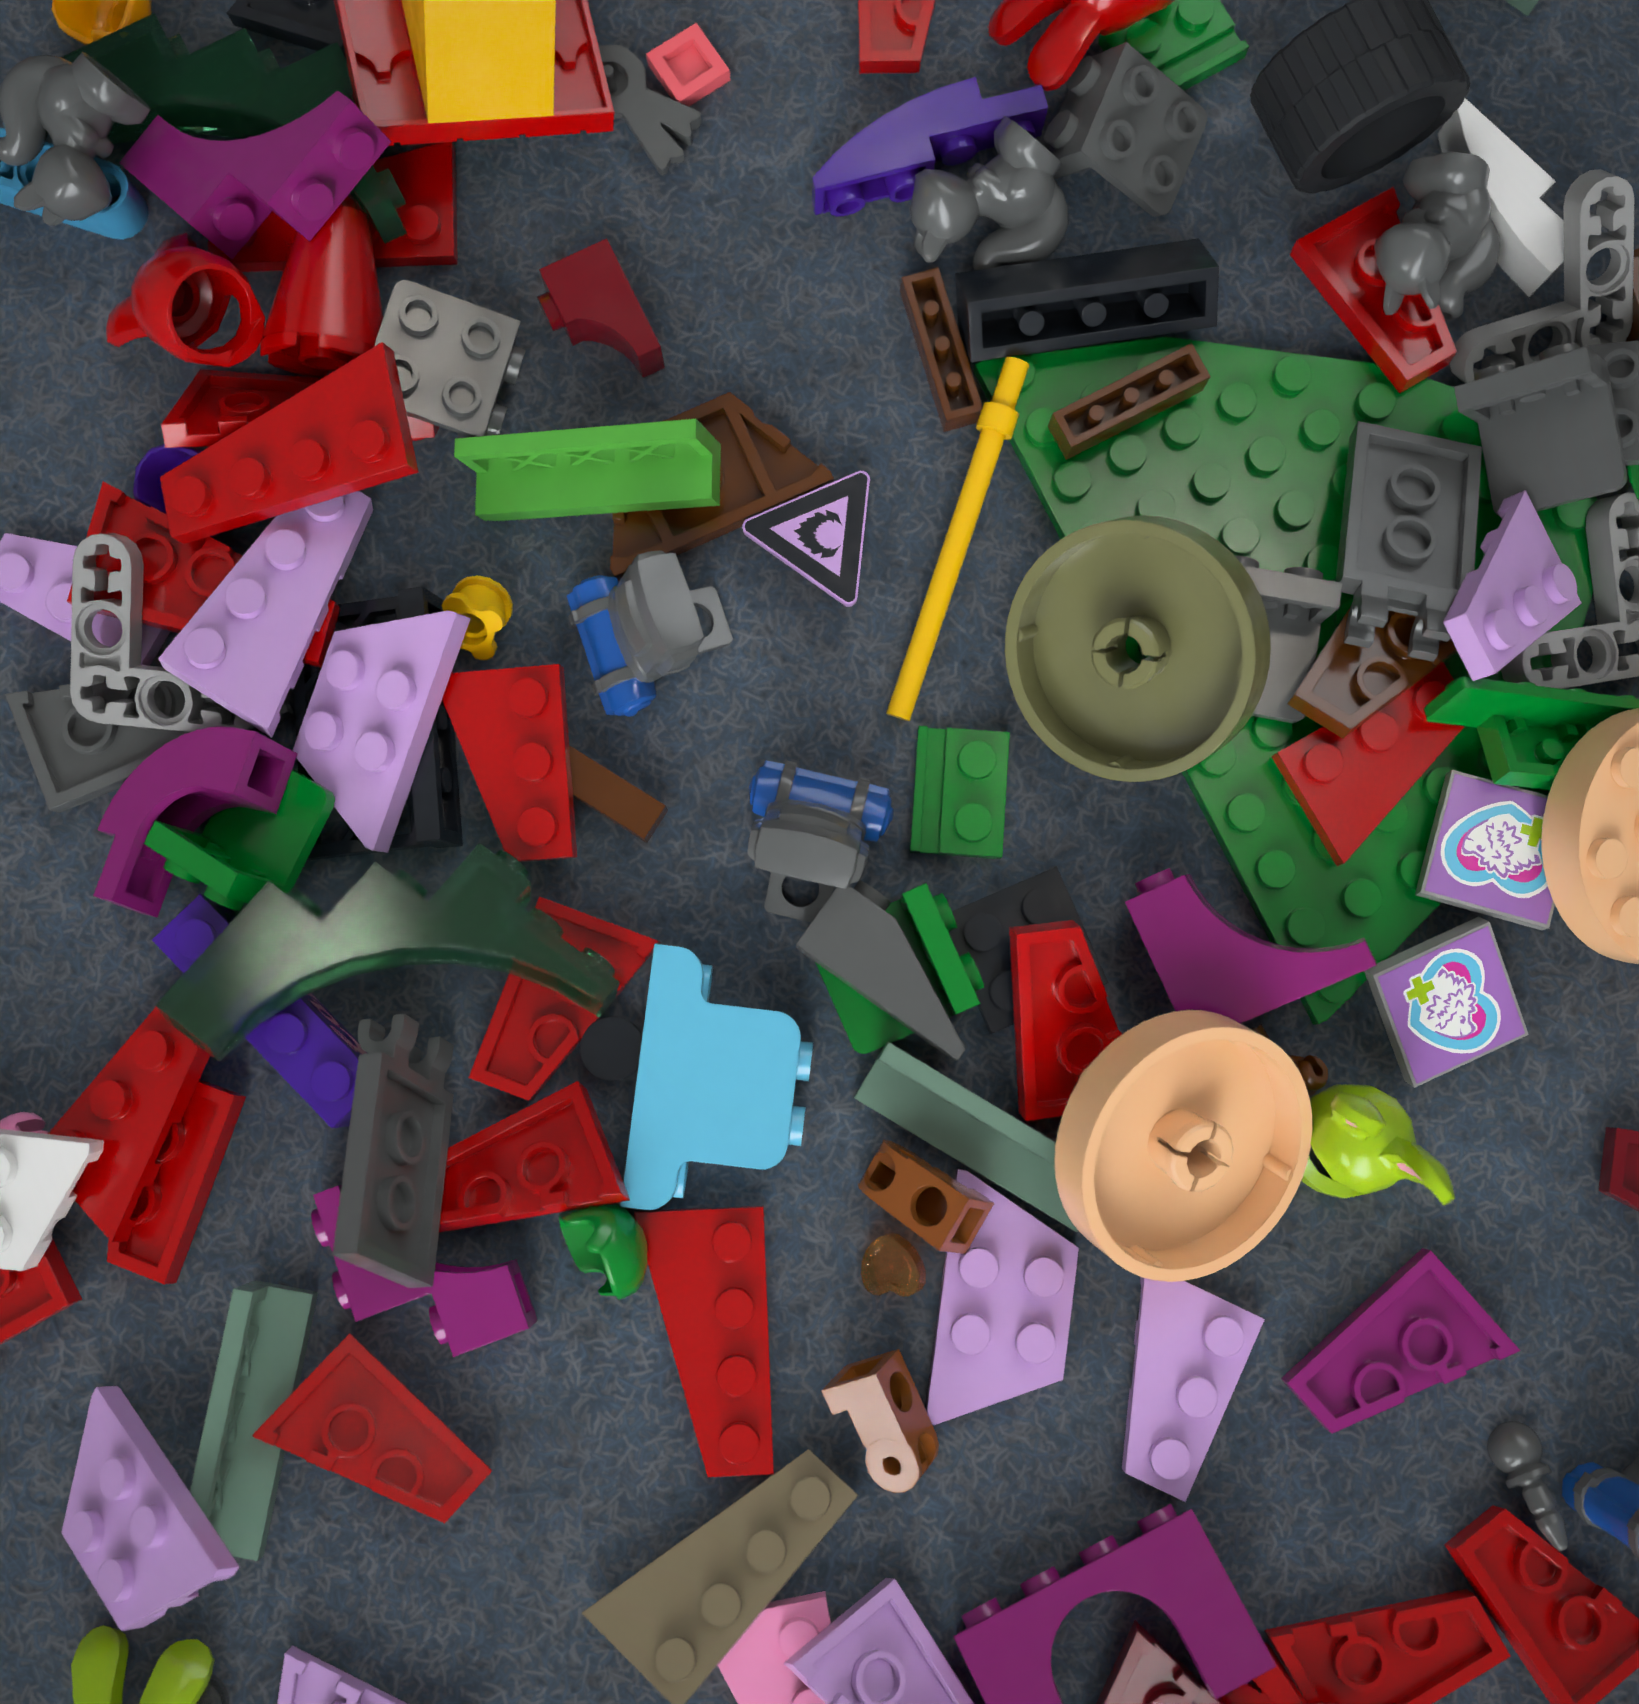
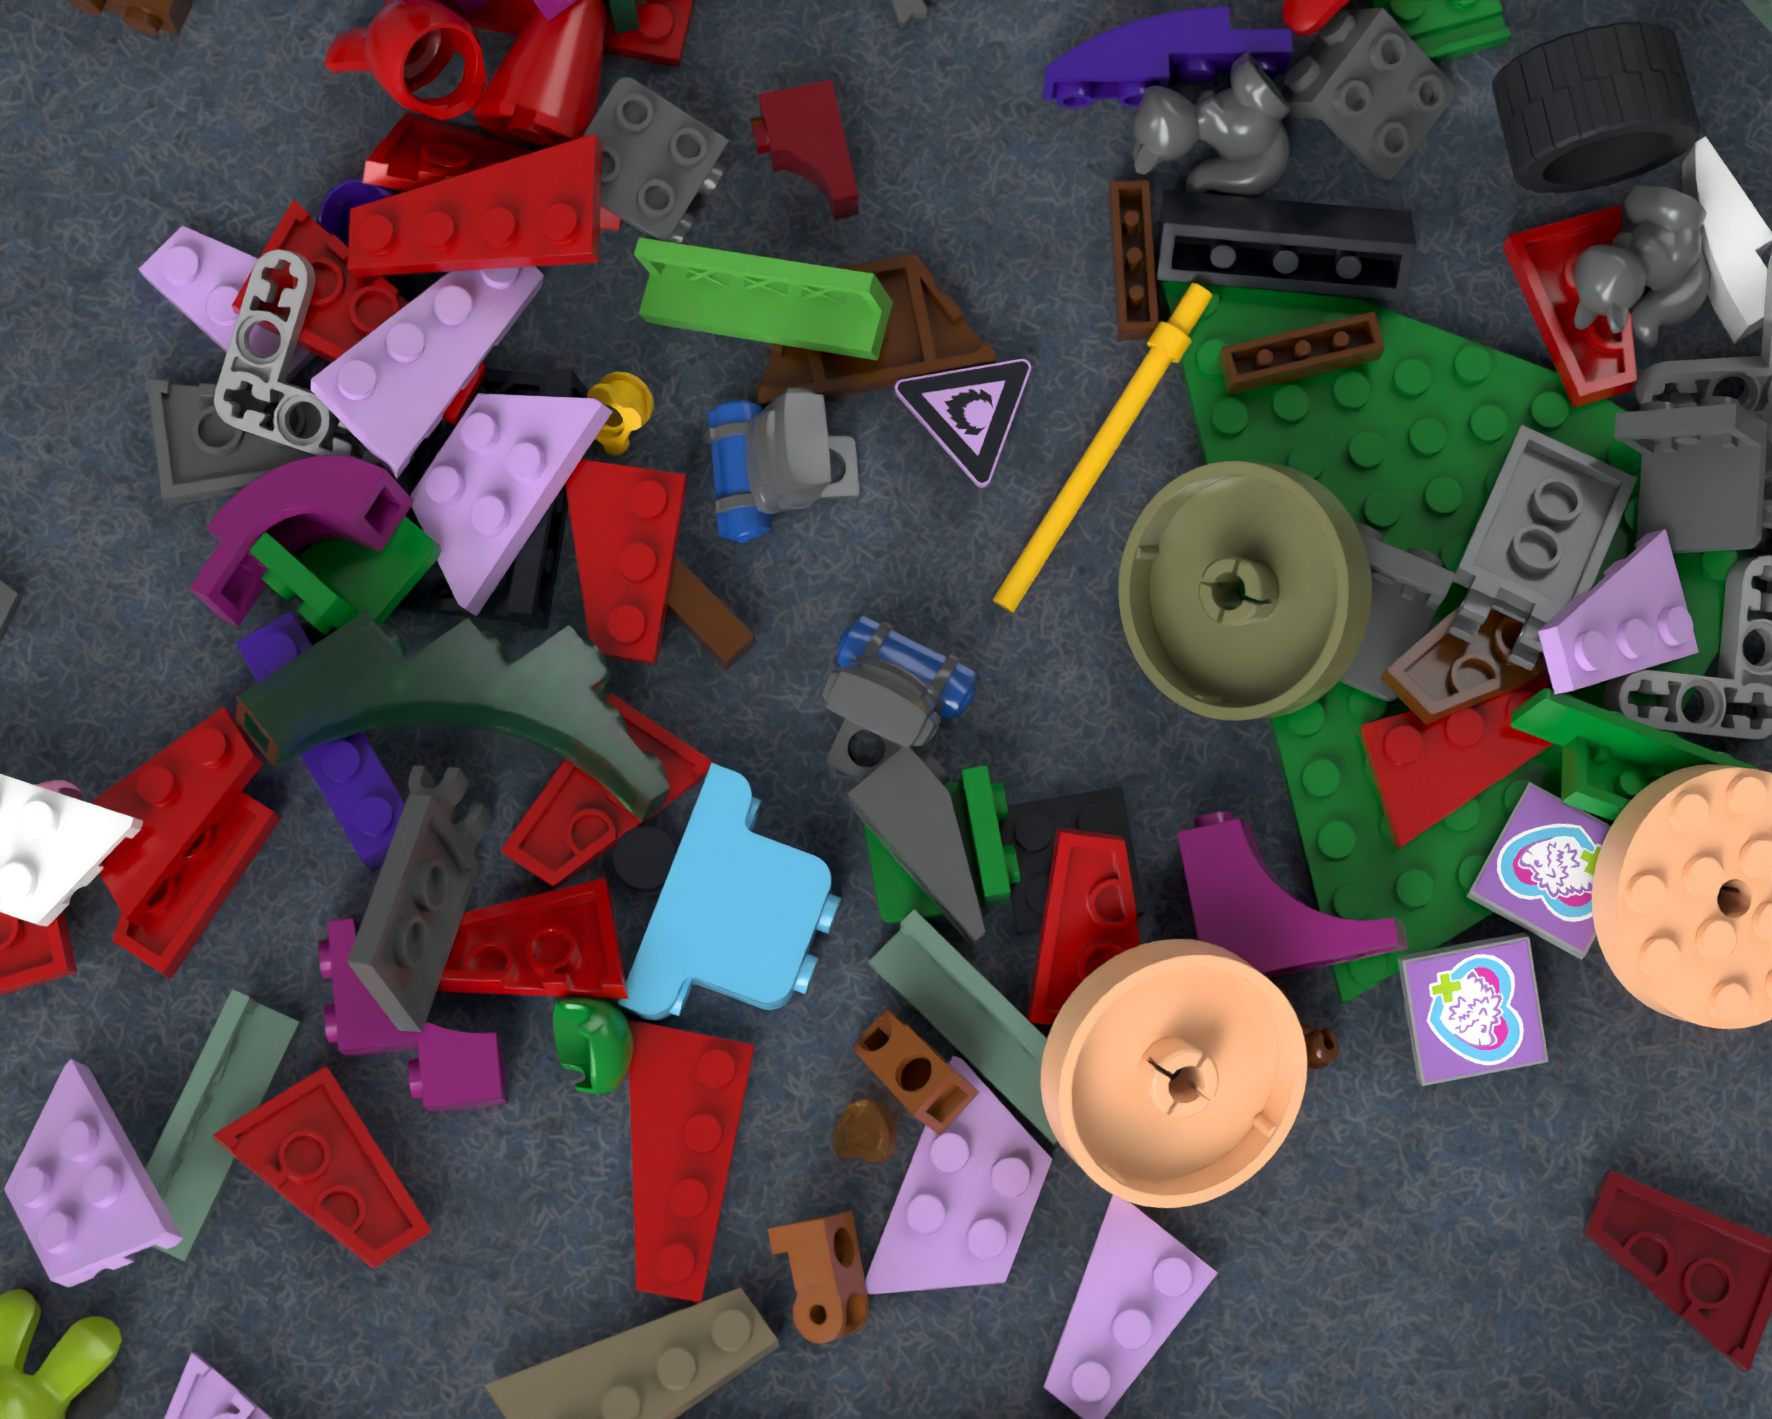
camera: 15 degrees right, 5 degrees down
(959, 792) = (1045, 693): green plate -> none
(1368, 1145) = (1351, 1119): lime piece -> none
(1396, 1343) = (1343, 1330): magenta wing -> none

